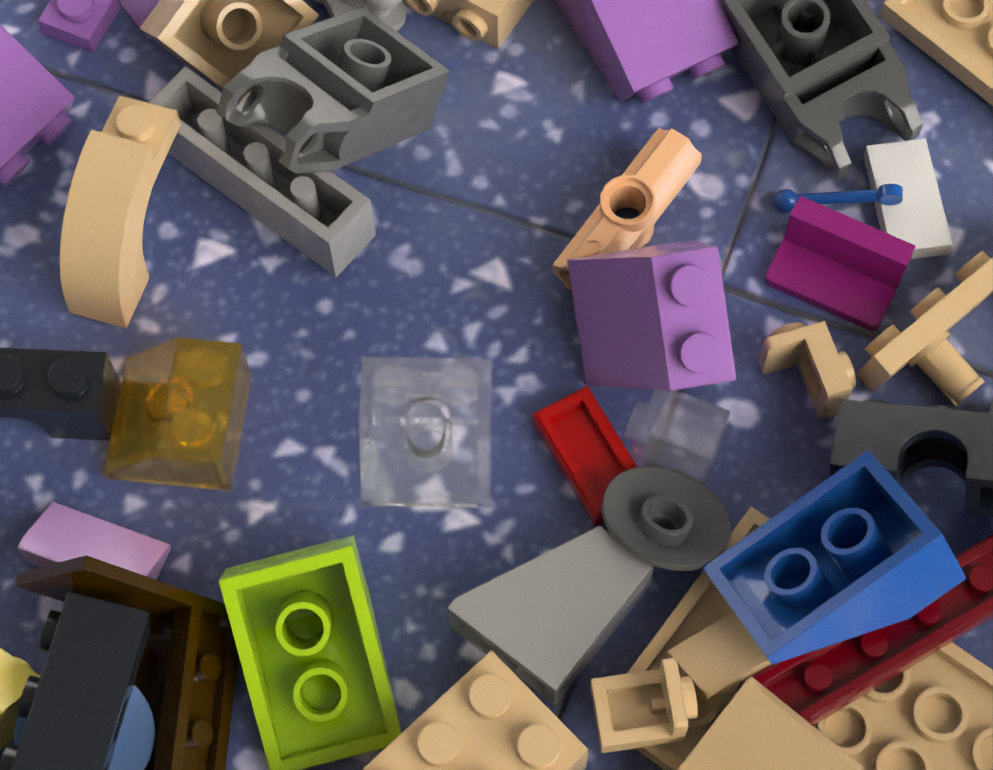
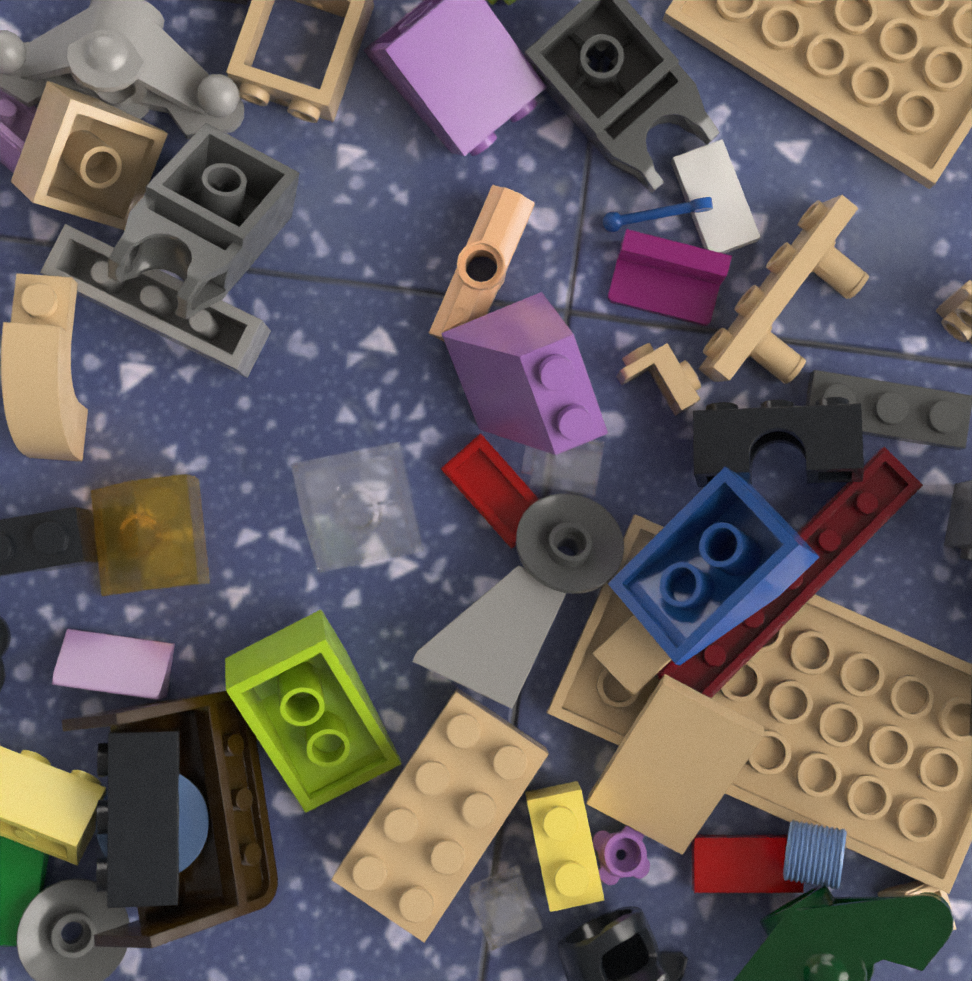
camera: 15 degrees left, 20 degrees up
(643, 707) = (583, 709): tan bracket -> none

